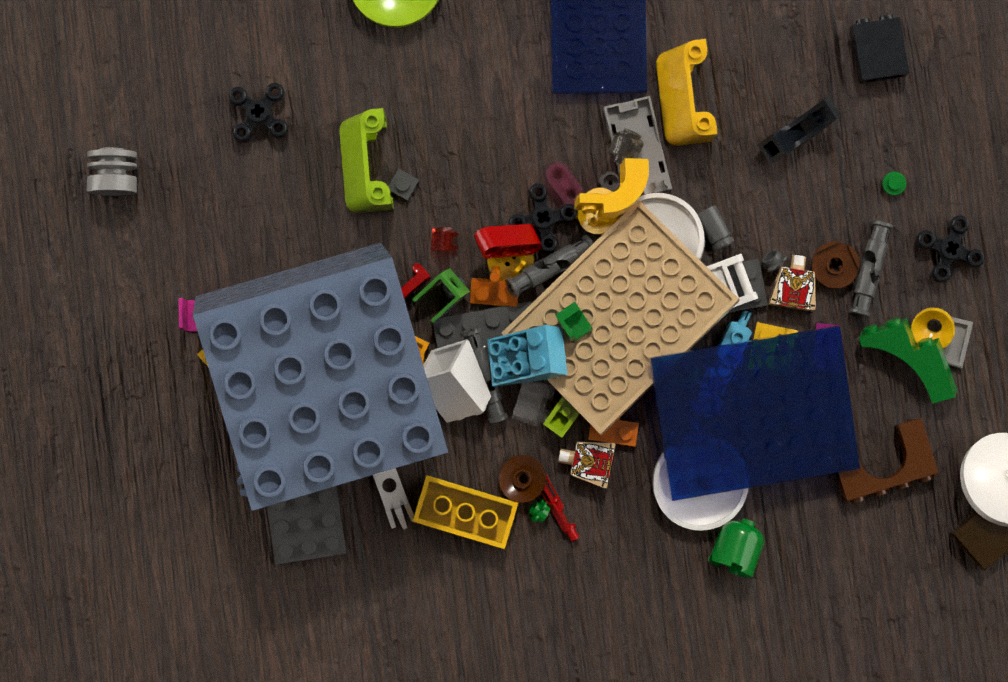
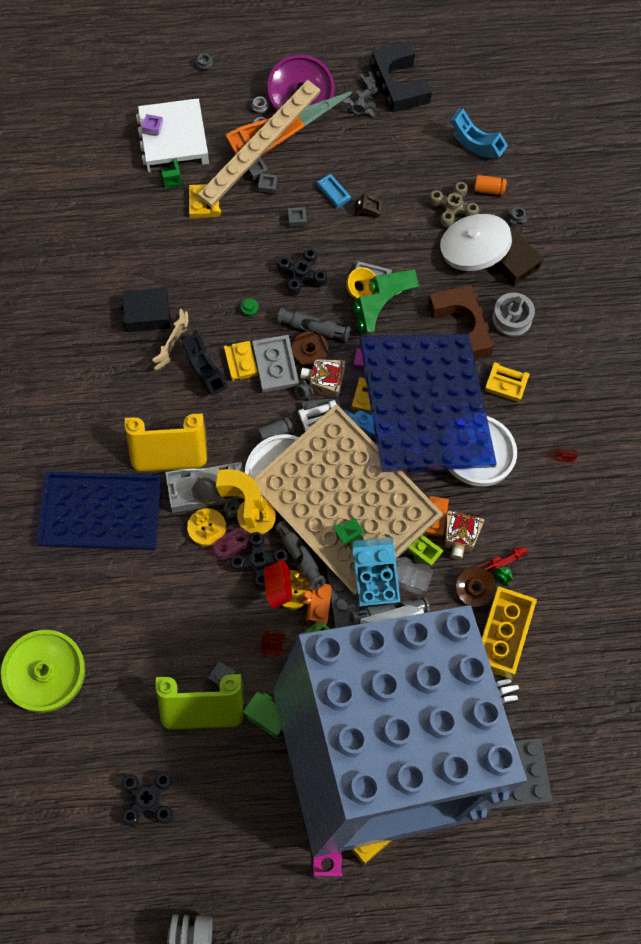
camera: 90 degrees left, 20 degrees down
(359, 234) = (264, 714): none -> bright green brick
(593, 145) = (202, 519): none -> yellow plate
(706, 595) = (566, 455): none -> clear red slope
(738, 548) = (530, 424): green cylinder -> none
(795, 519) = (505, 386): none -> yellow plate
(812, 222) = (275, 363): none -> light grey plate
(815, 177) = (241, 360): none -> yellow plate
(858, 96) = (180, 327): none -> tan piece
(900, 529) = (513, 314): none -> light grey wheel

